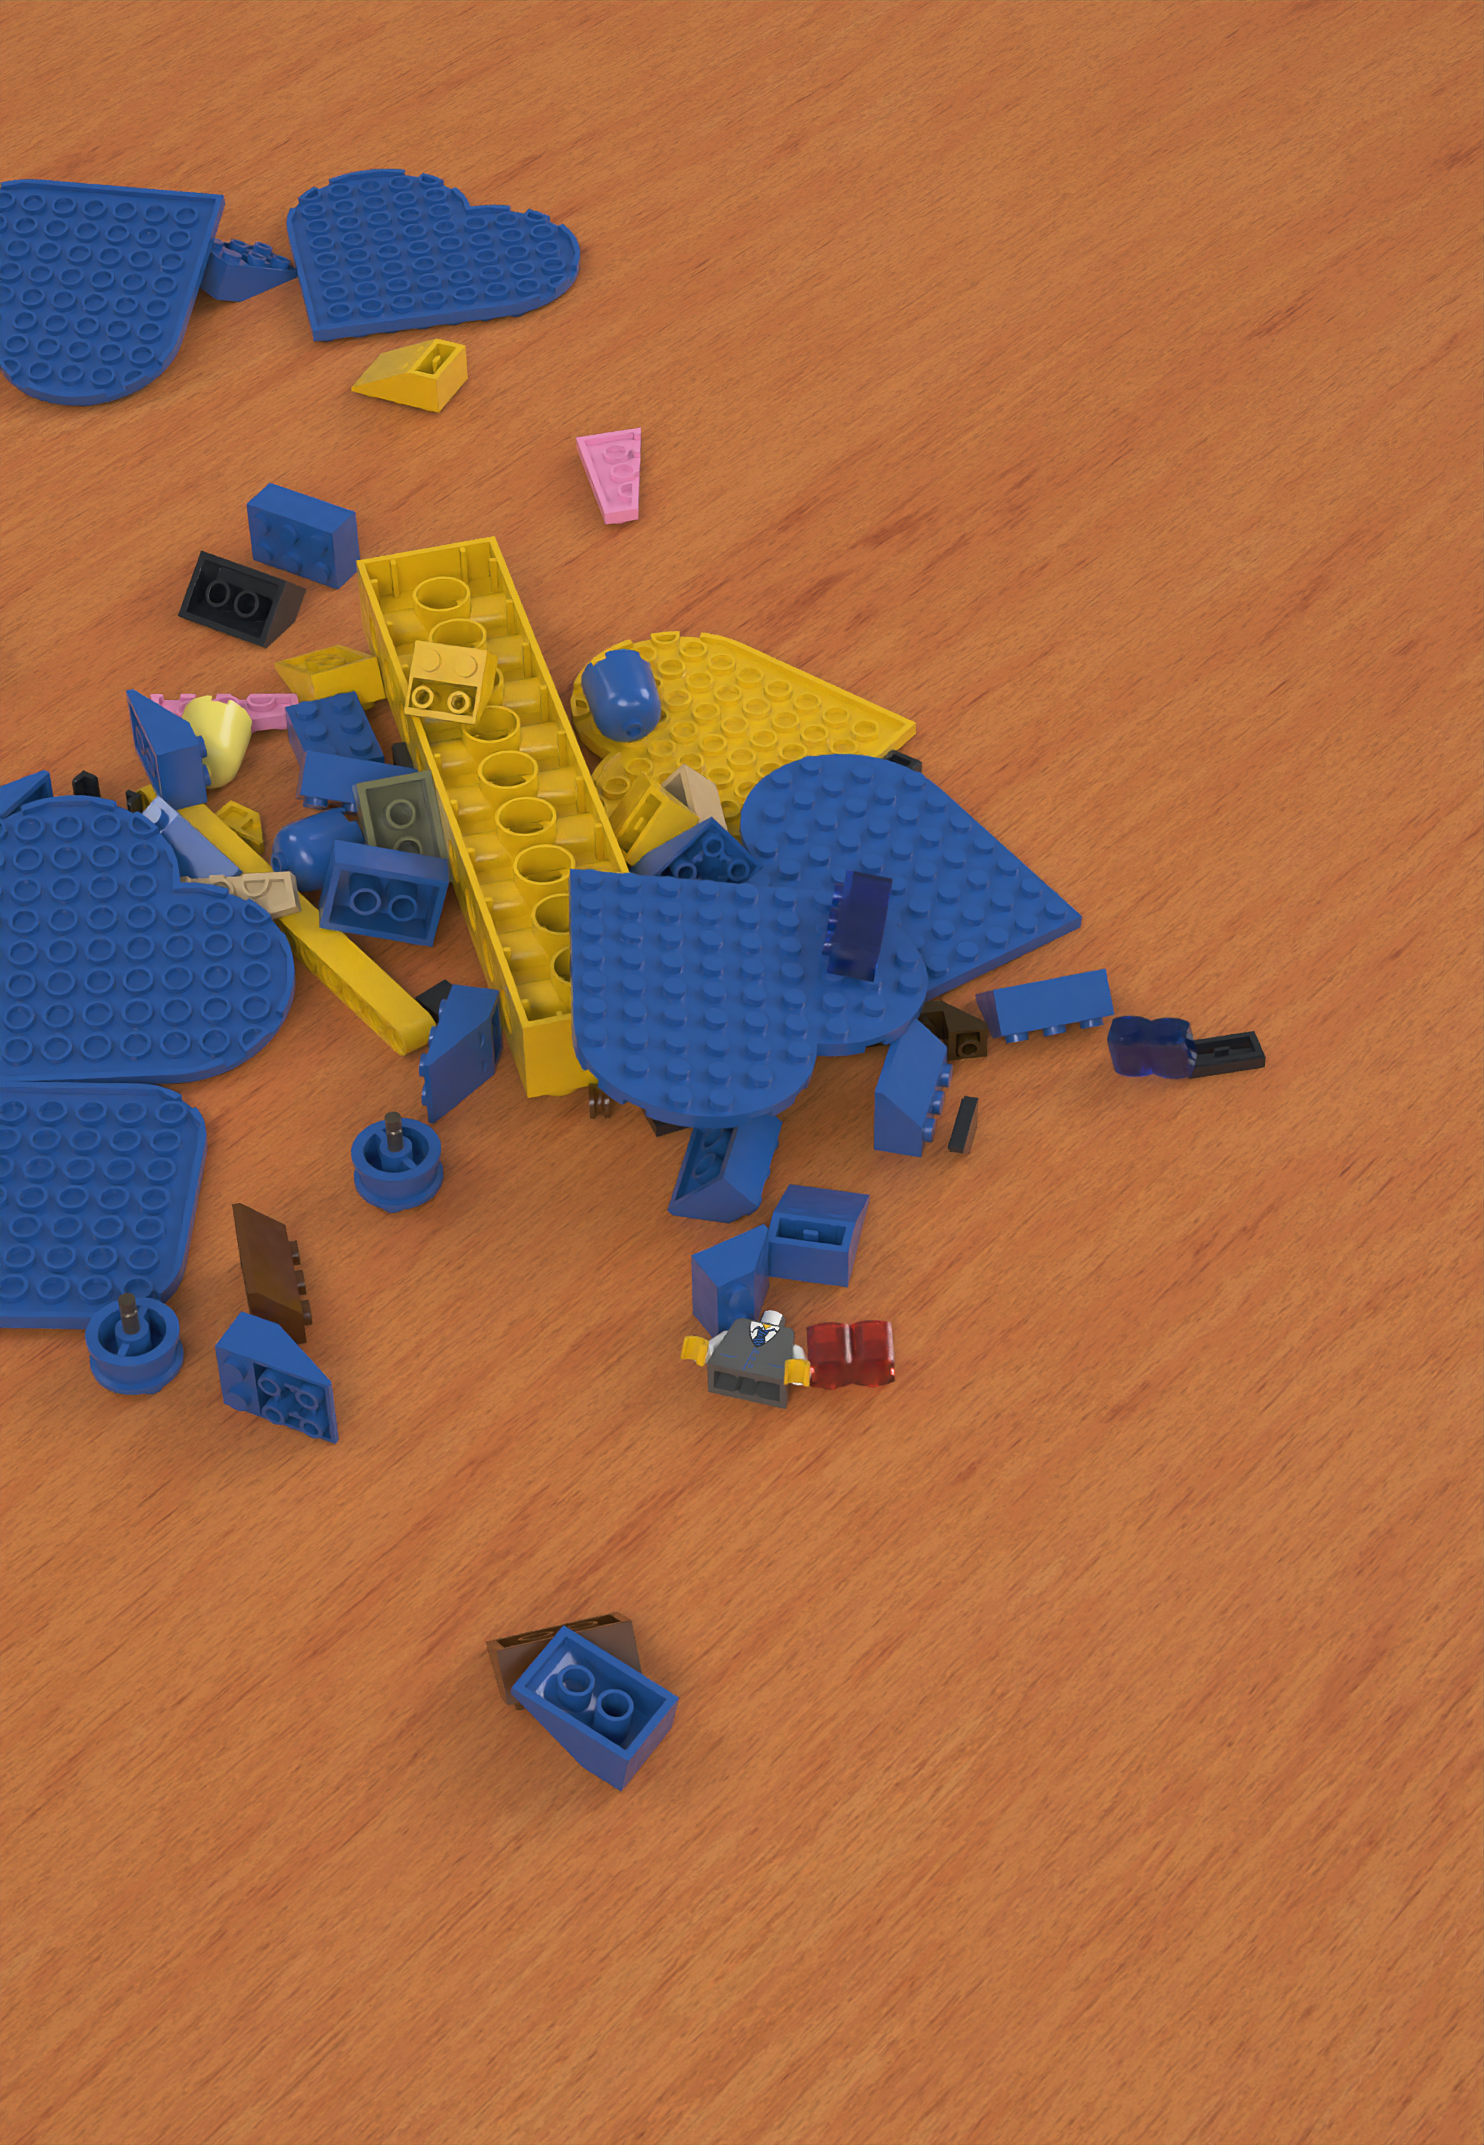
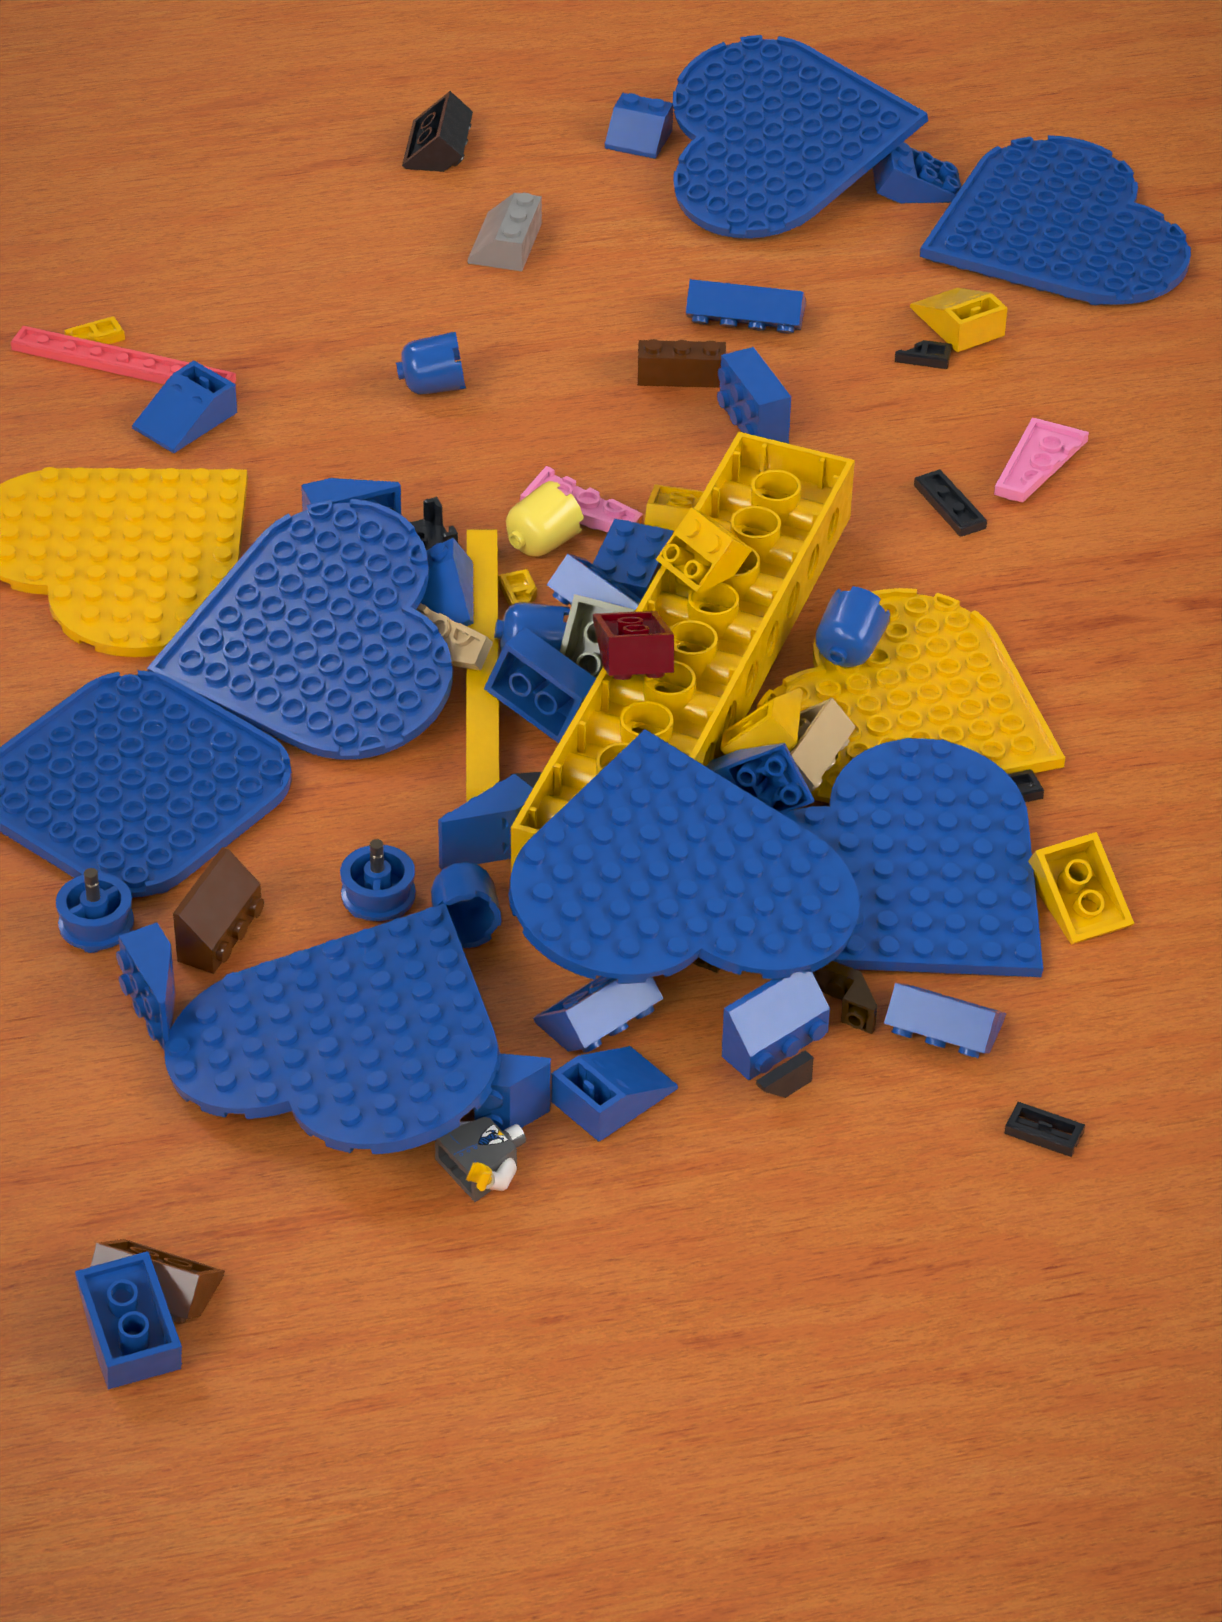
camera: 35 degrees right, 0 degrees up
(168, 752) = (489, 514): blue slope -> none
(178, 539) = (679, 363): none -> reddish brown slope
(197, 455) = (745, 305): none -> blue slope
(240, 600) = (673, 426): black slope -> none
(412, 426) = (926, 354): none -> black tile
(473, 796) = (634, 644): none -> dark red slope
(509, 1136) = (470, 902): none -> blue cylinder
(529, 1309) = (358, 1037): none -> blue plate
(572, 550) = (950, 503): none -> black tile
(851, 1354) = (546, 1188): clear red brick -> none
(857, 925) = (812, 878): clear blue brick -> none
(1047, 829) = (1080, 888): none -> yellow slope
(1152, 1047) = (984, 1092): clear blue brick -> none

